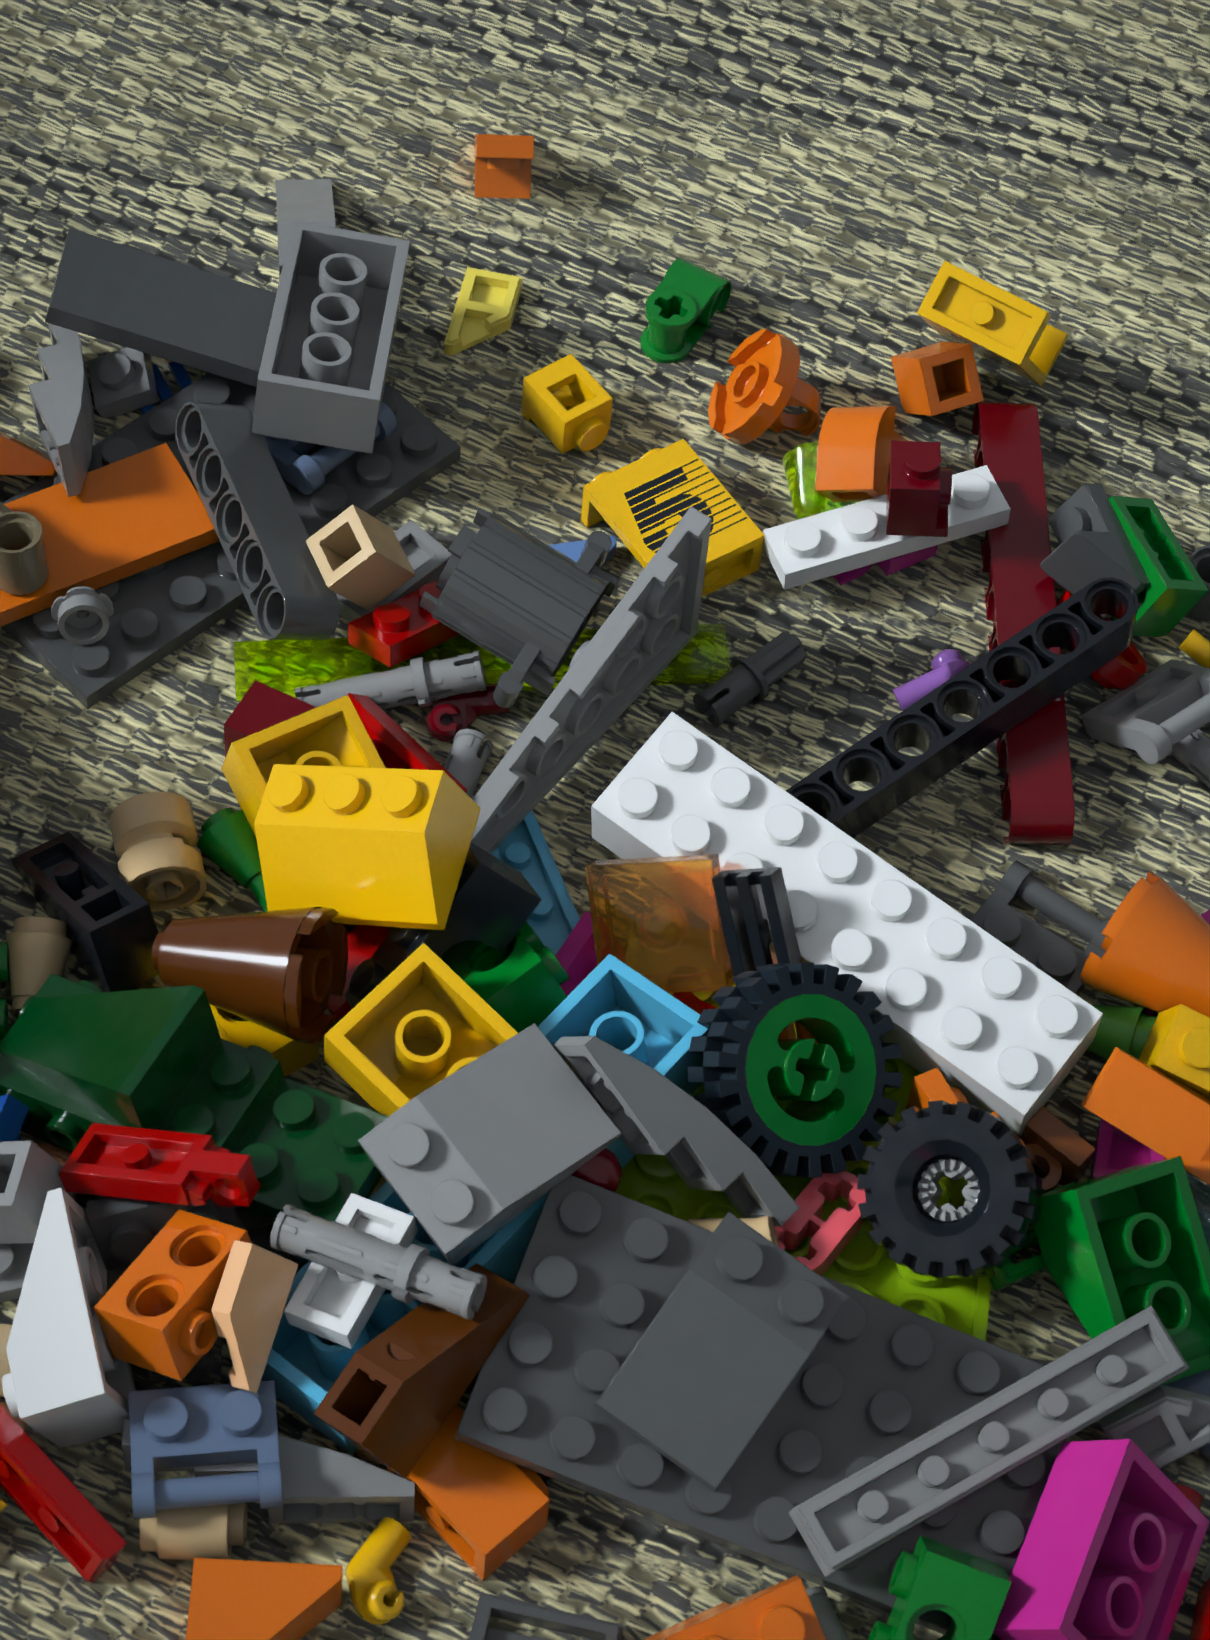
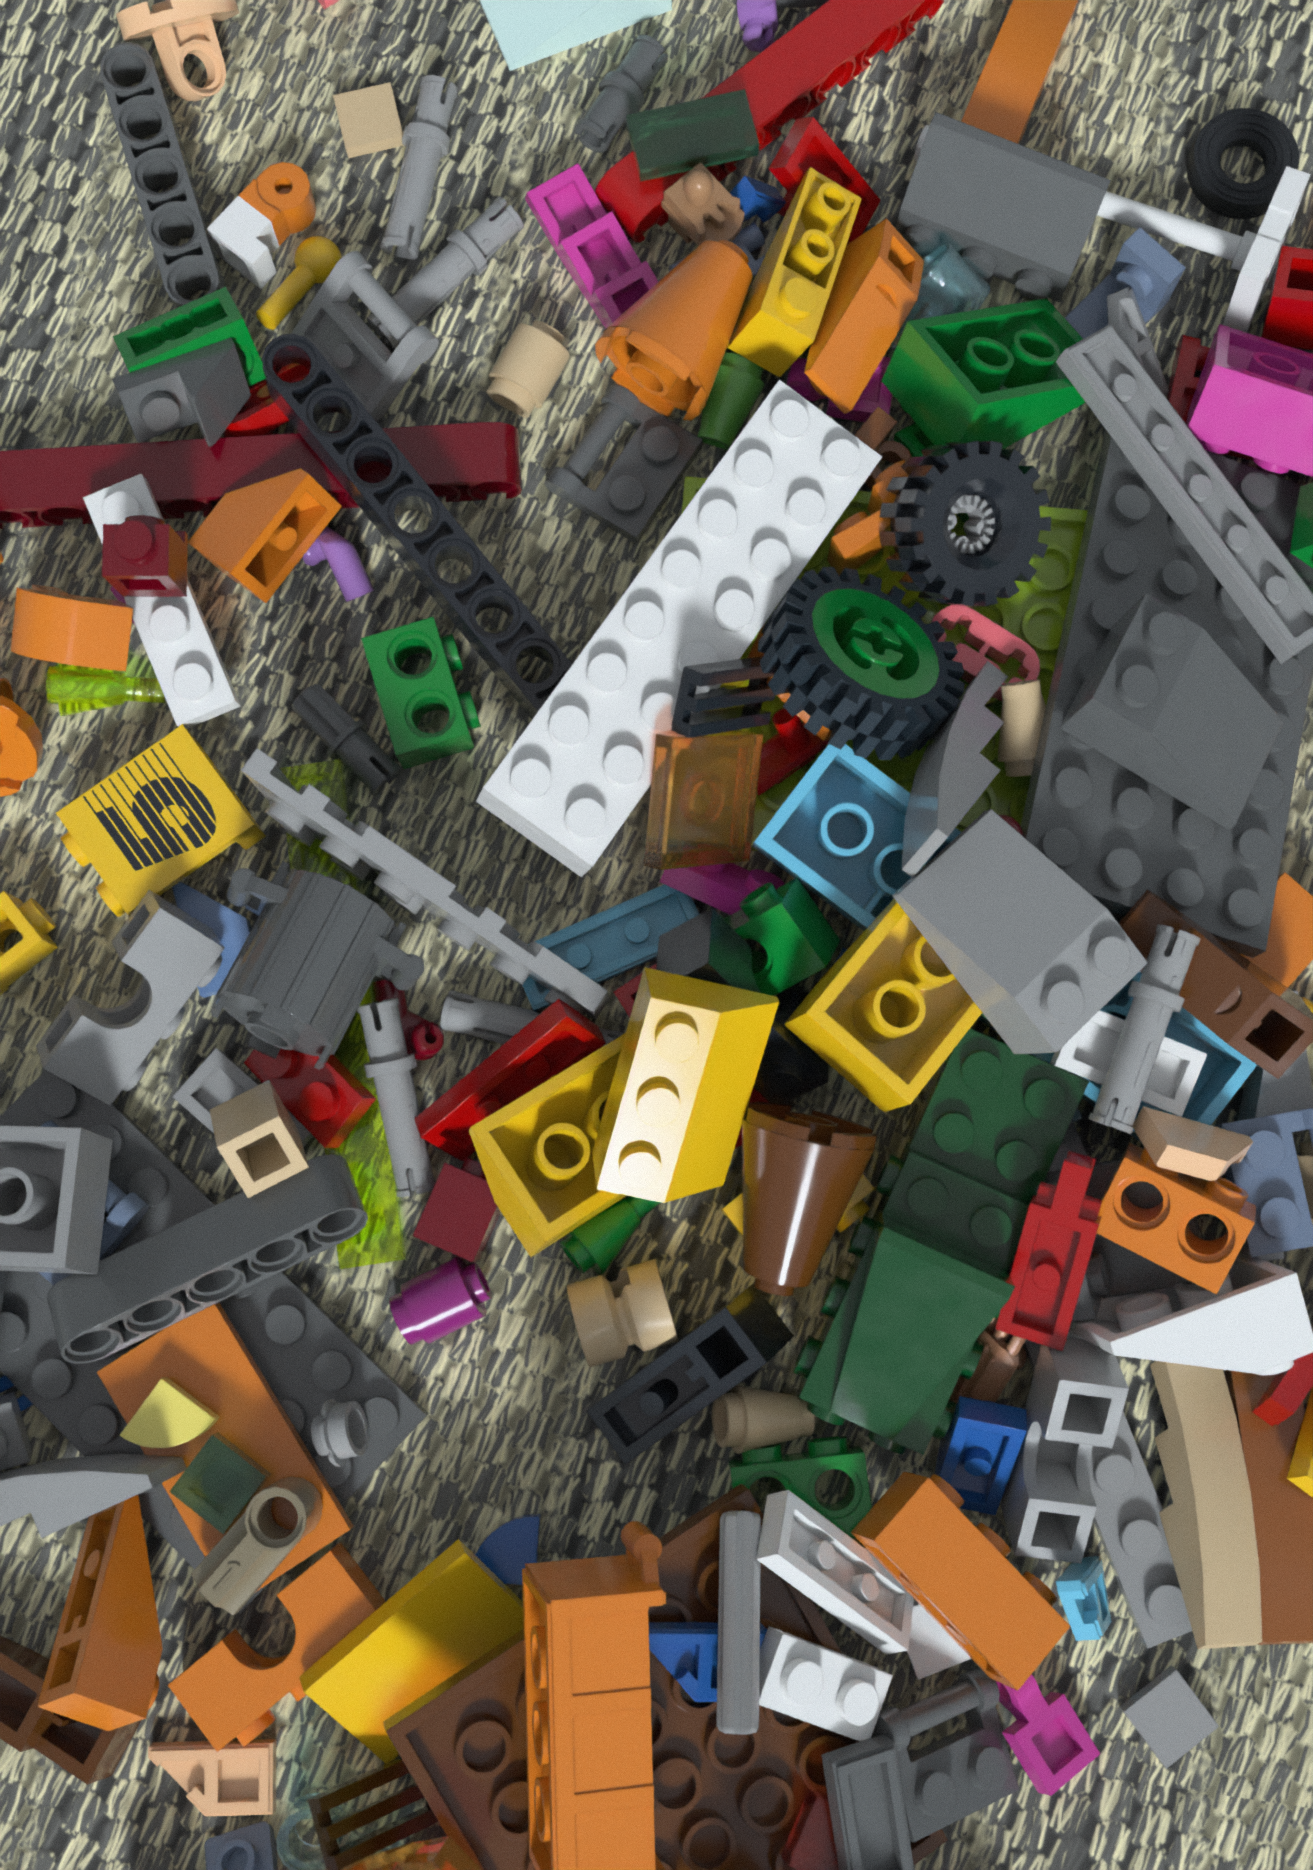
camera: 85 degrees left, 25 degrees up
(59, 509) = (220, 1482): none -> clear green plate
(117, 484) = (168, 1418): none -> light yellow tile
(190, 714) = (440, 1301): none -> magenta brick
(467, 465) = (109, 1046): none -> light grey arch
(791, 727) = (409, 697): none -> green brick
(952, 608) = (265, 530): none -> orange slope
(1134, 847) = (528, 368): none -> tan brick

